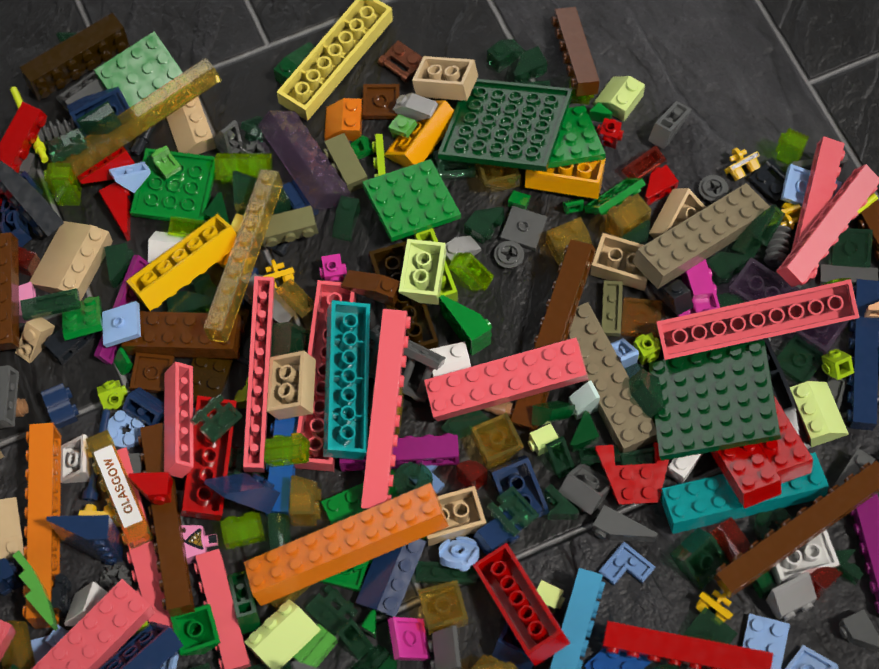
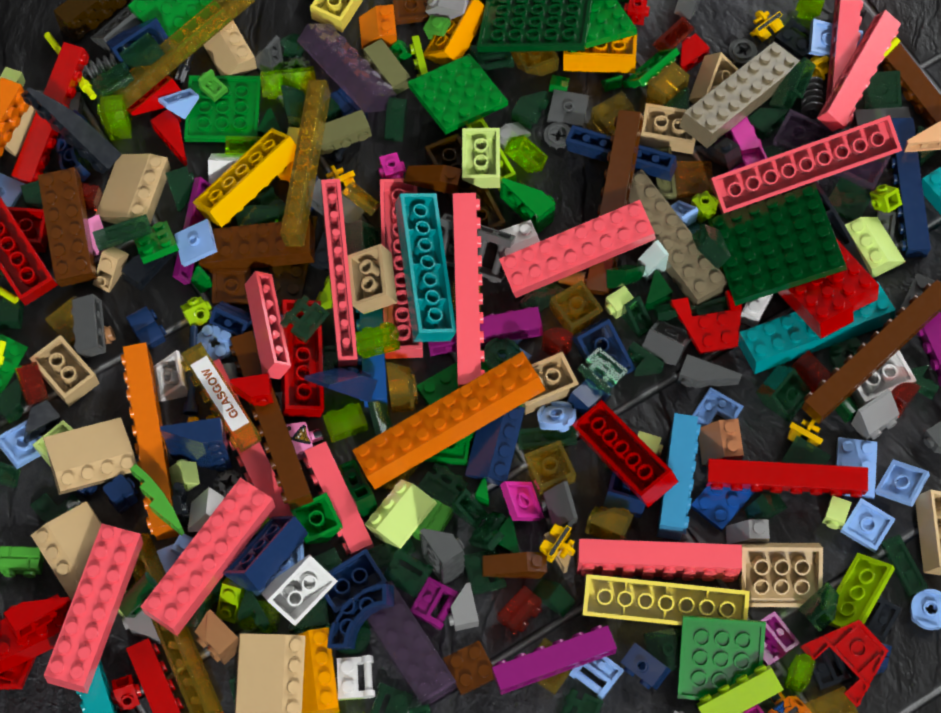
camera: 10 degrees left, 0 degrees up
(72, 564) = (184, 473): none -> yellowish green brick
(546, 272) = (598, 145): none -> dark blue brick
(625, 602) = (720, 441): none -> nougat slope

